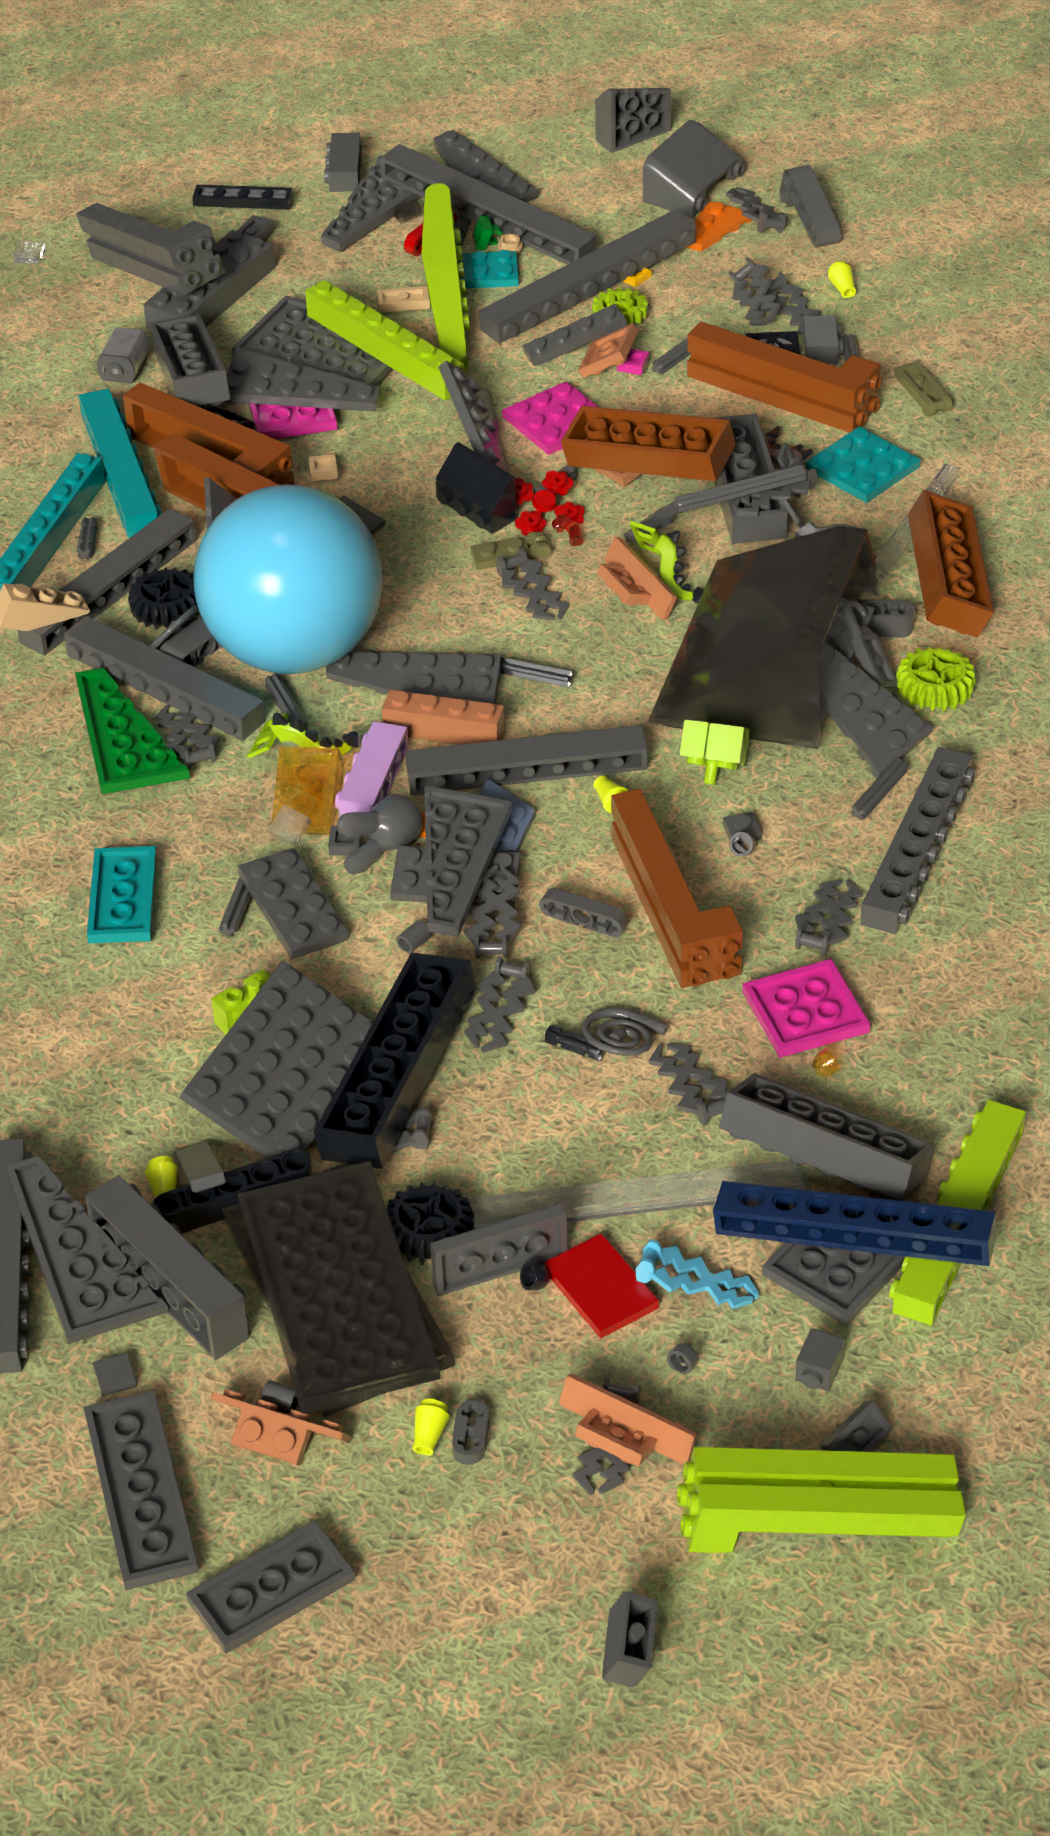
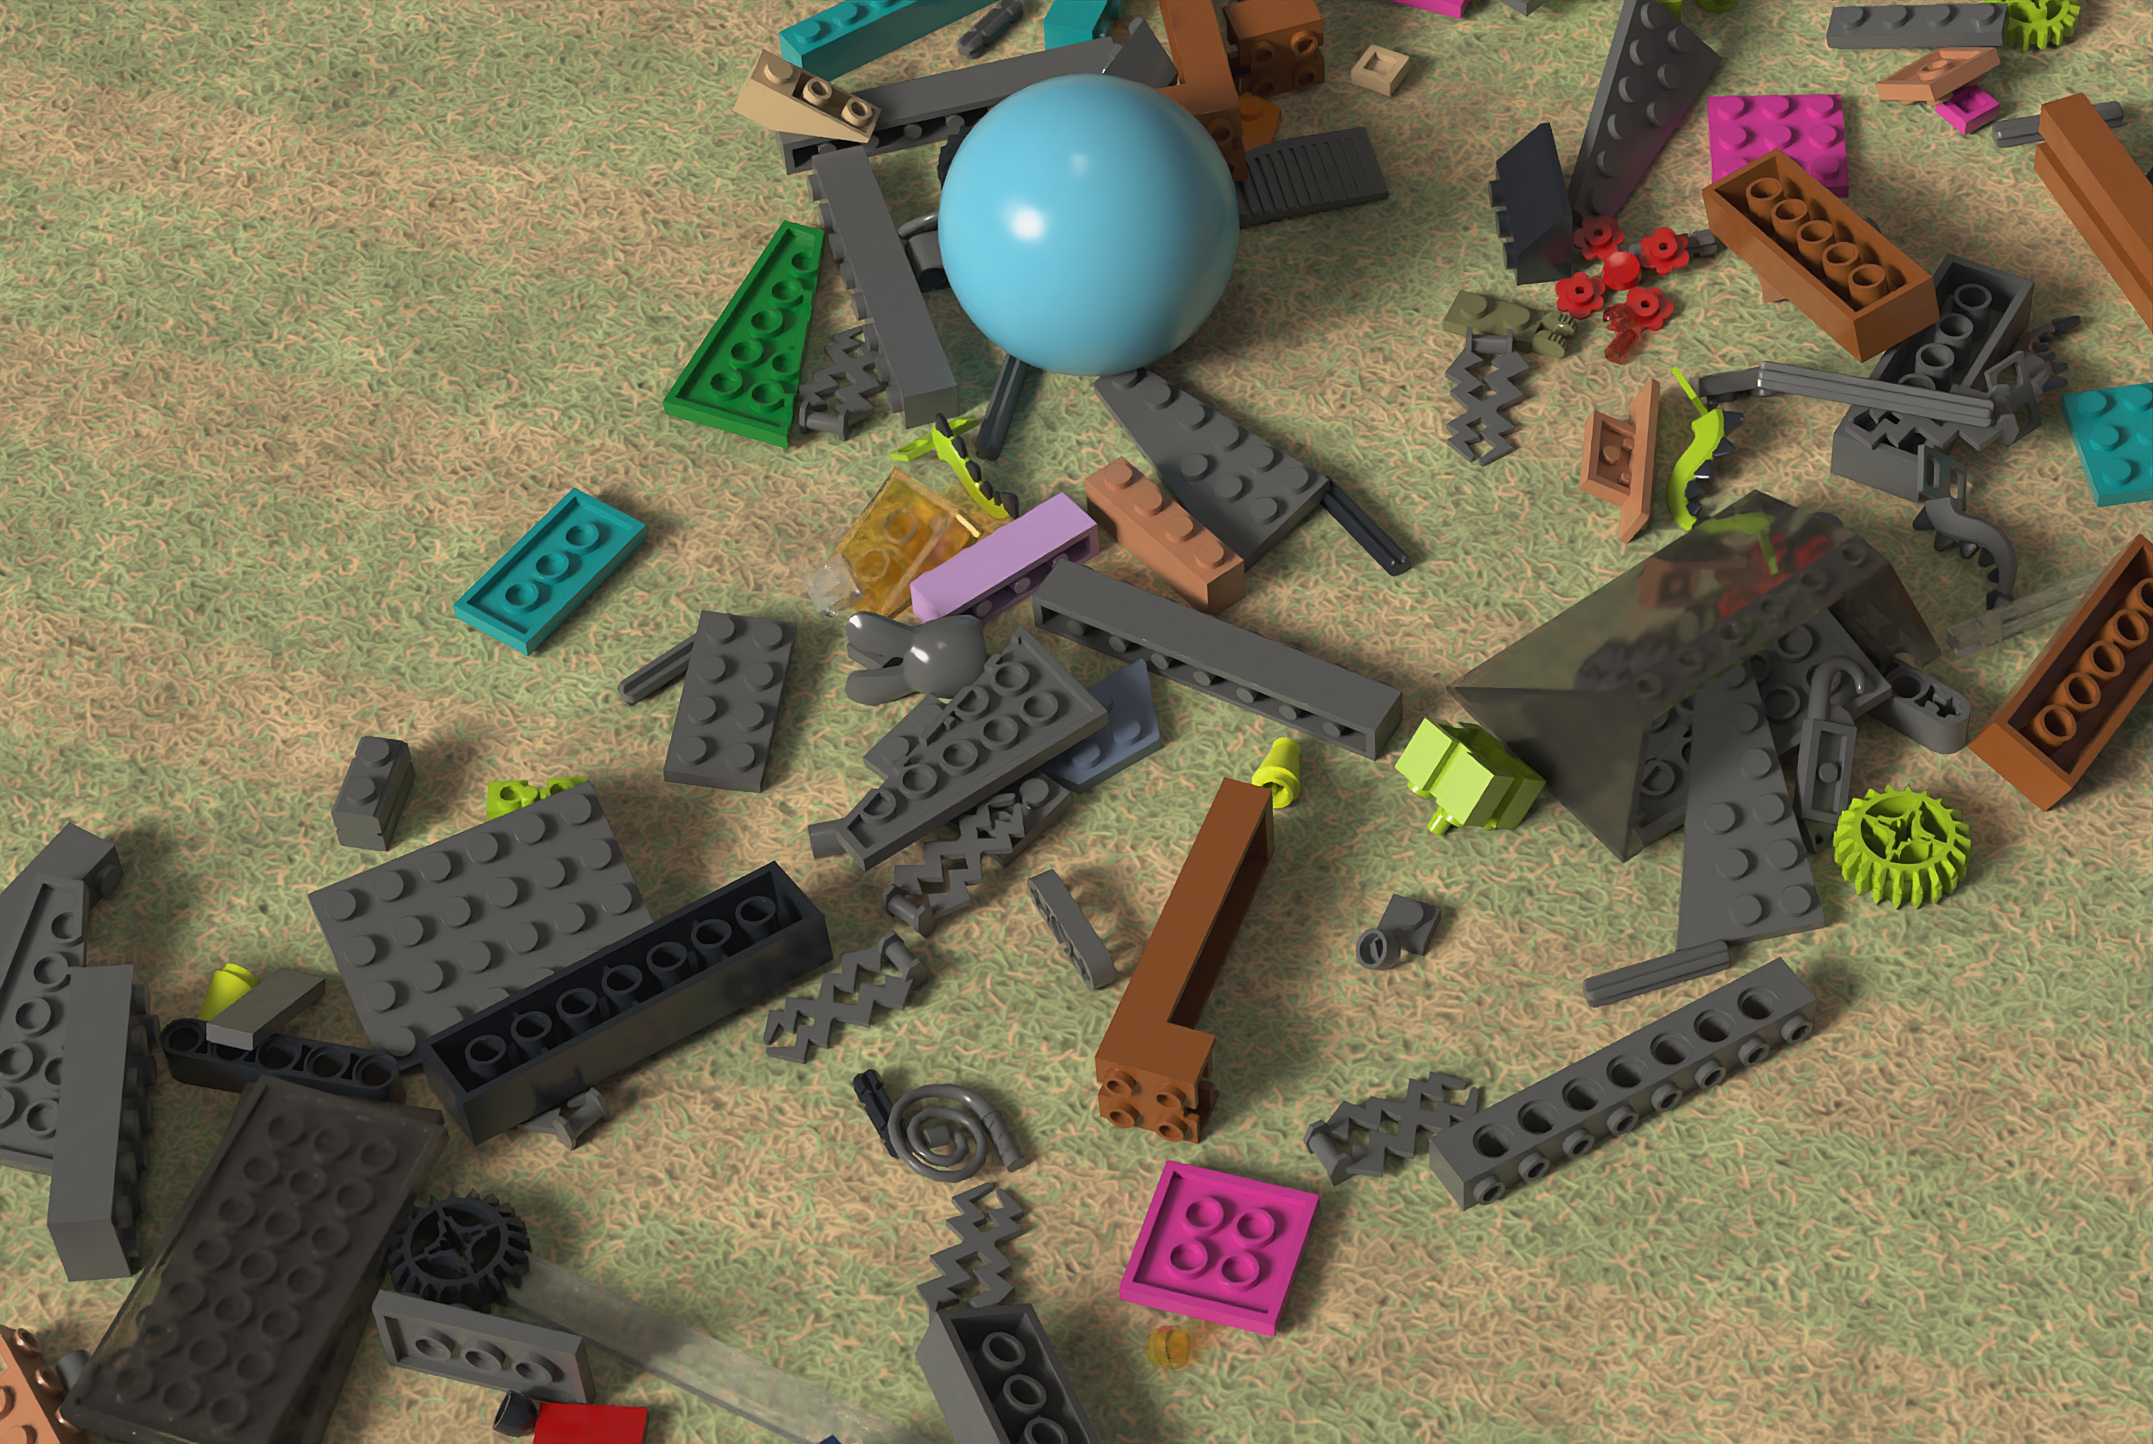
camera: 40 degrees right, 5 degrees up
(141, 1042) = (373, 793): none -> dark grey brick

